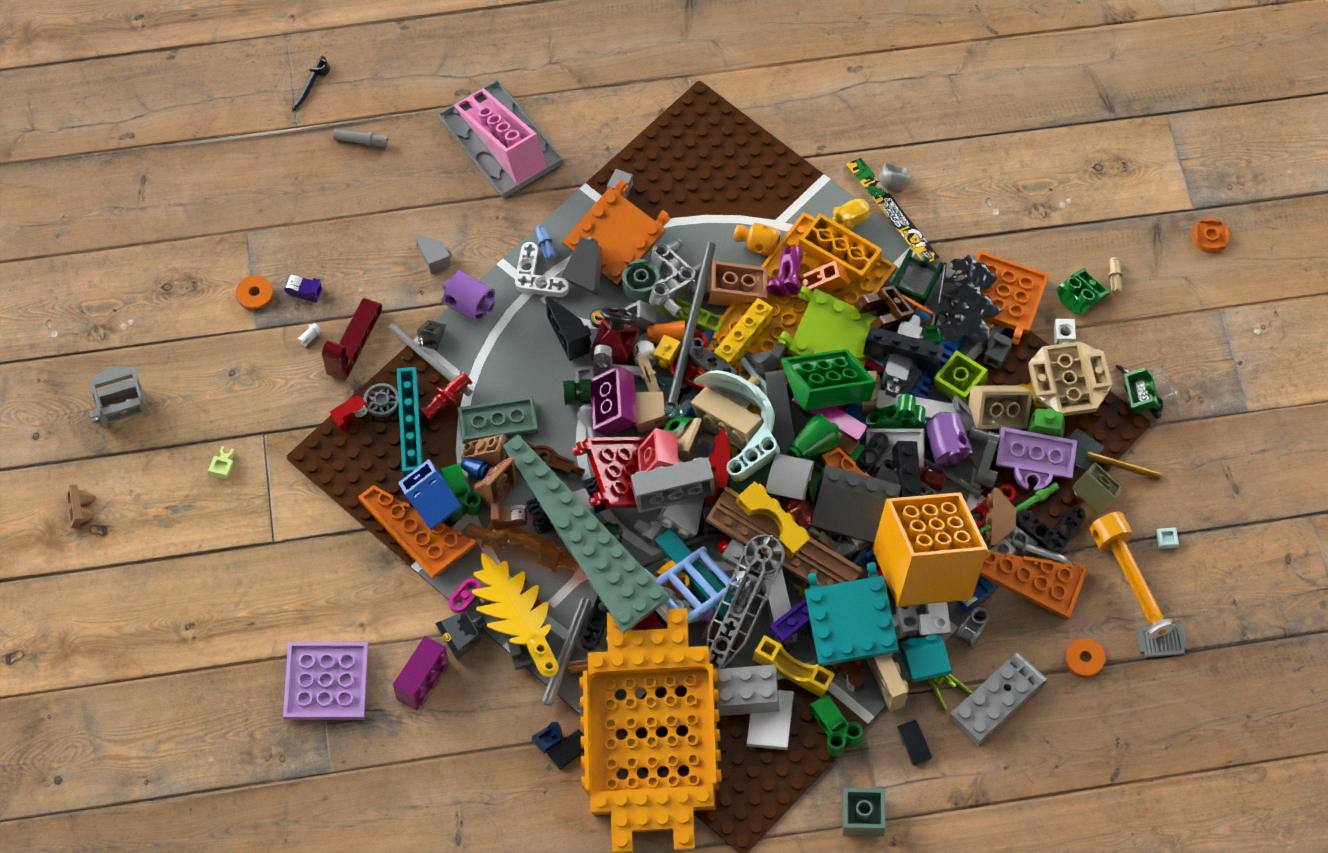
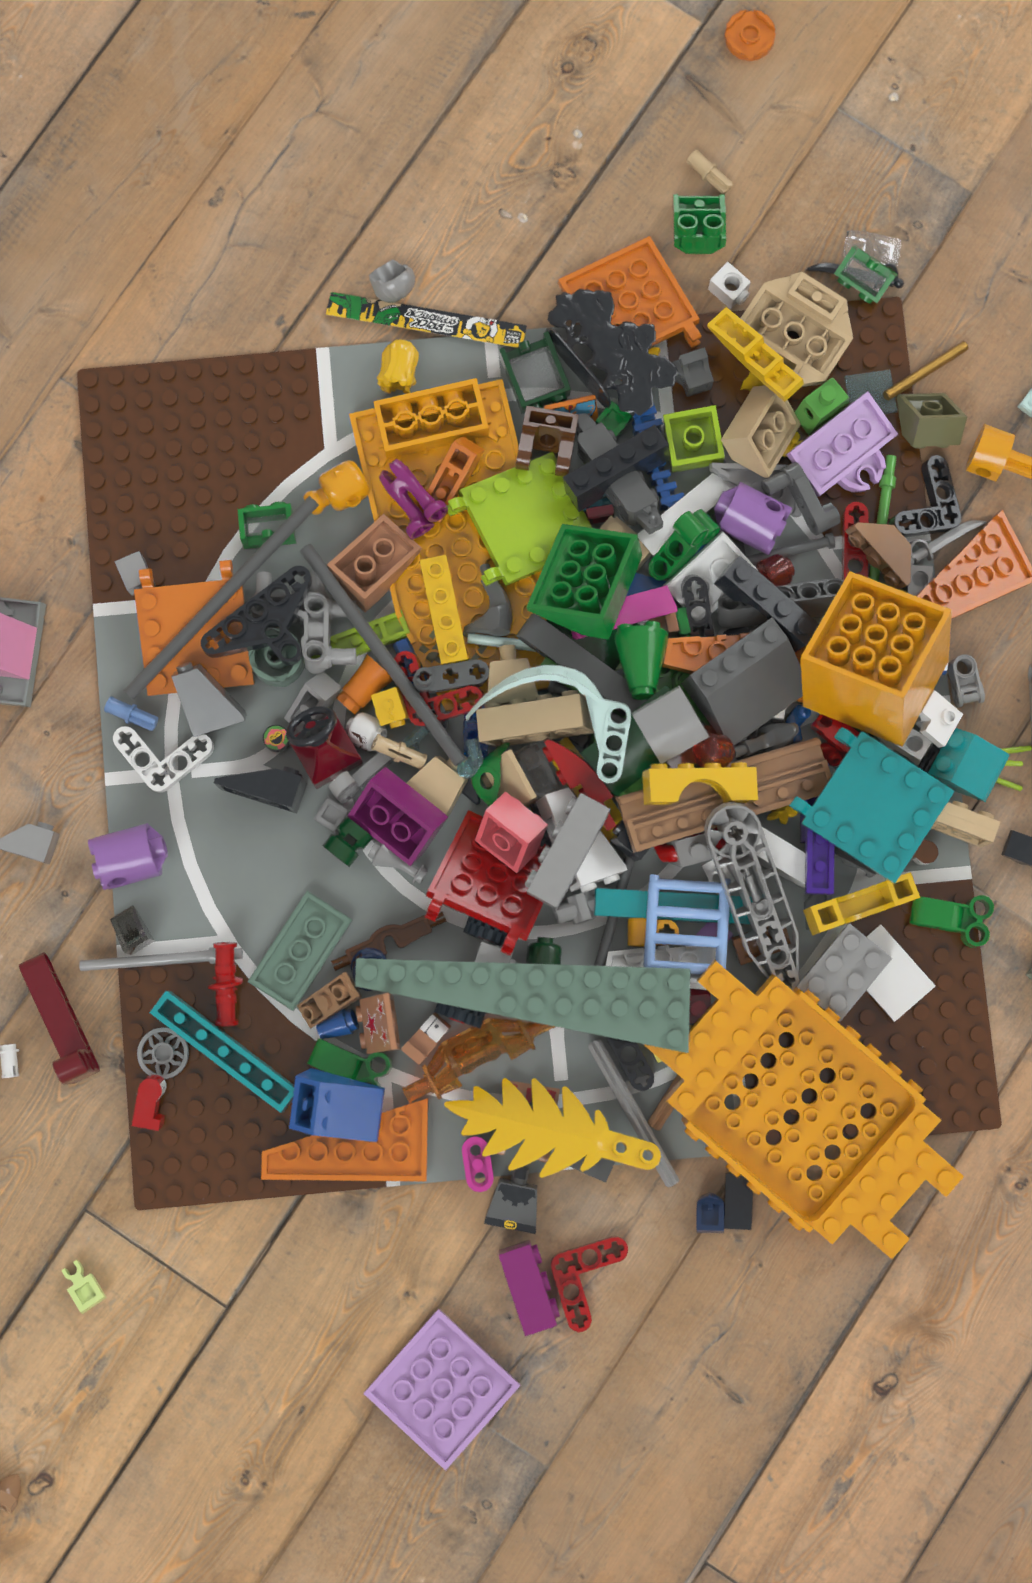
camera: 50 degrees left, 20 degrees up
(449, 697) = (572, 1275): none -> red beam
(645, 226) = (221, 597): none -> dark grey piece
(662, 257) = (254, 629): none -> black beam
(705, 222) = (260, 522): none -> green window
(1033, 363) = (754, 354): none -> yellow slope

